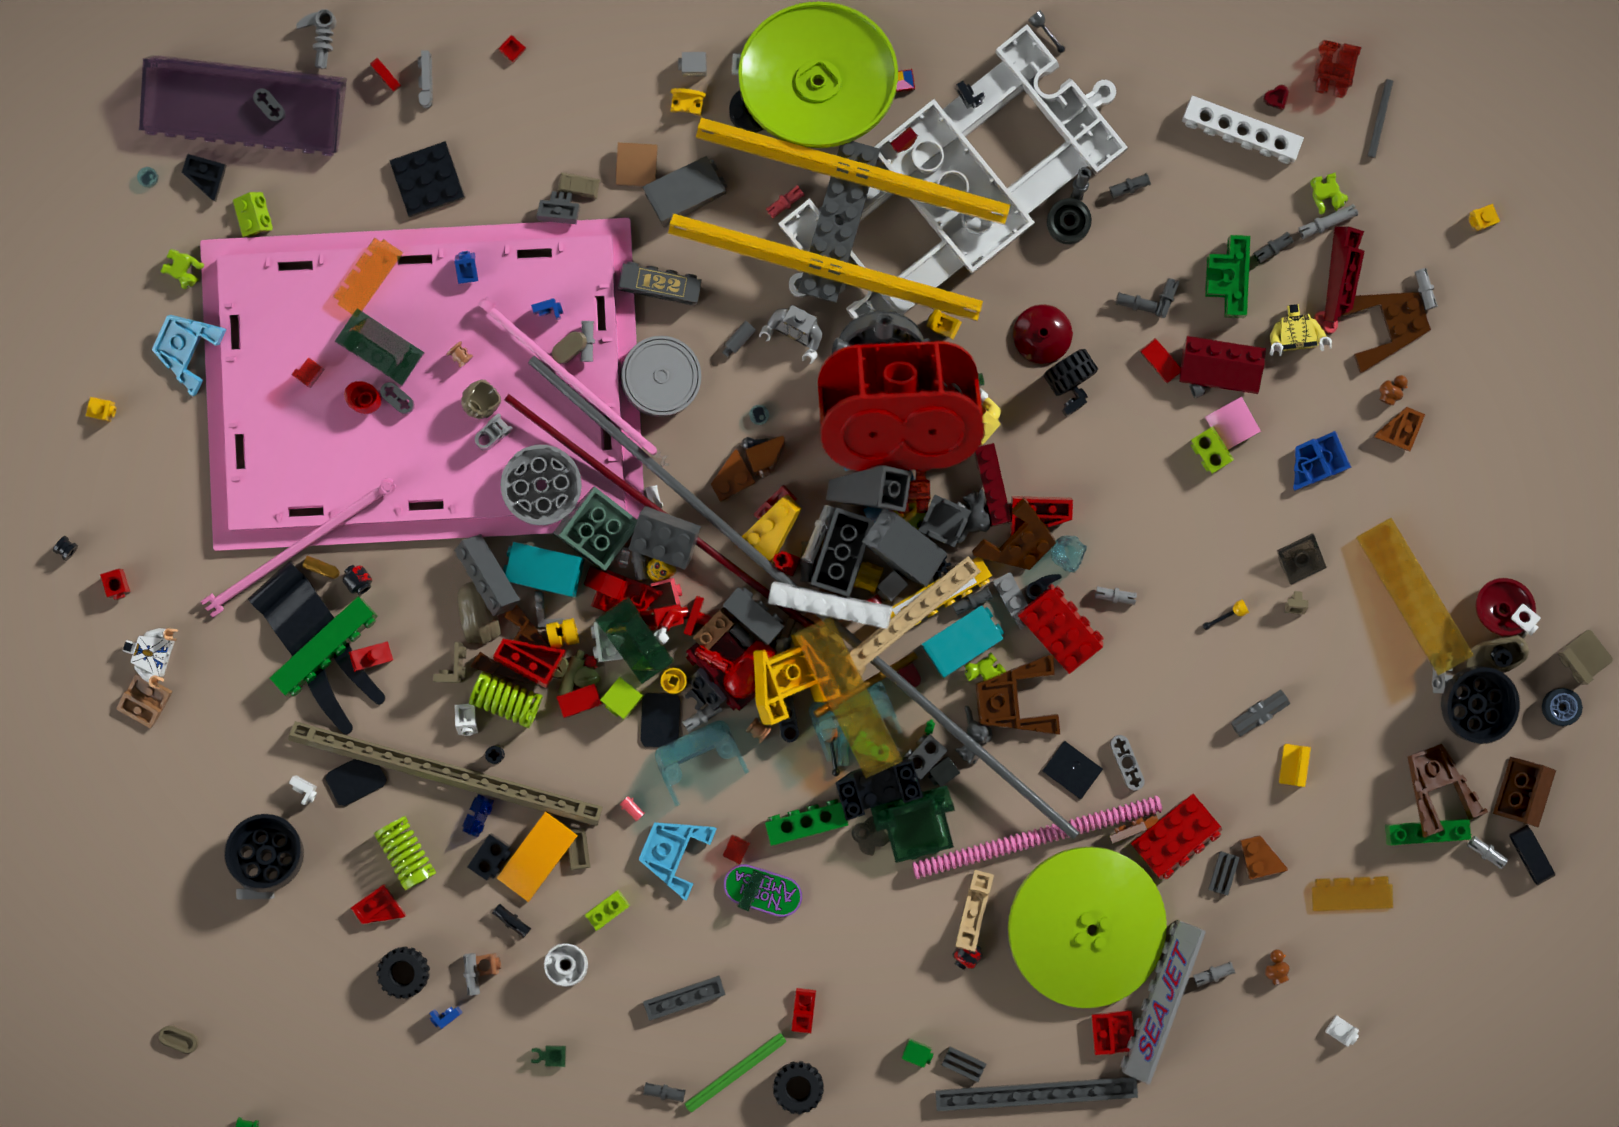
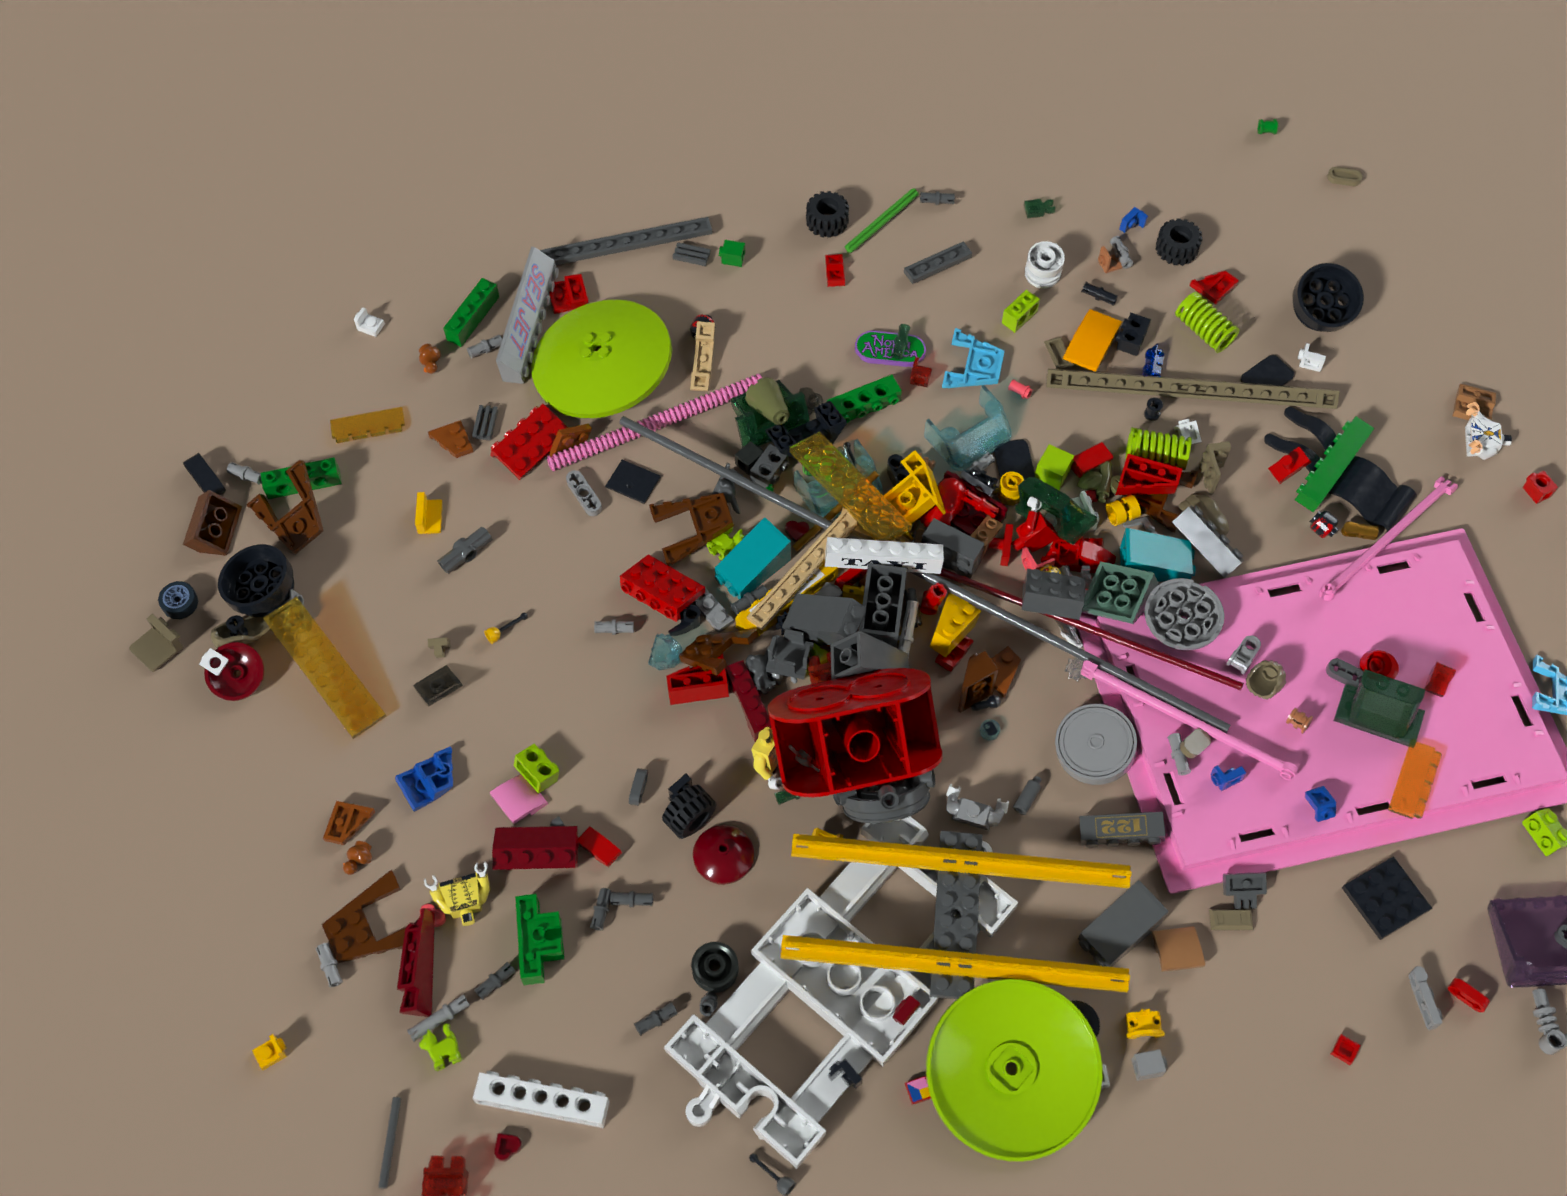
camera: 165 degrees right, 25 degrees down
(785, 201) = (1015, 937): coral pin -> none
(912, 827) = (768, 400): none -> olive cone
(1115, 414) = (638, 787): none -> dark grey beam
(1225, 1022) = (471, 312): none -> green brick

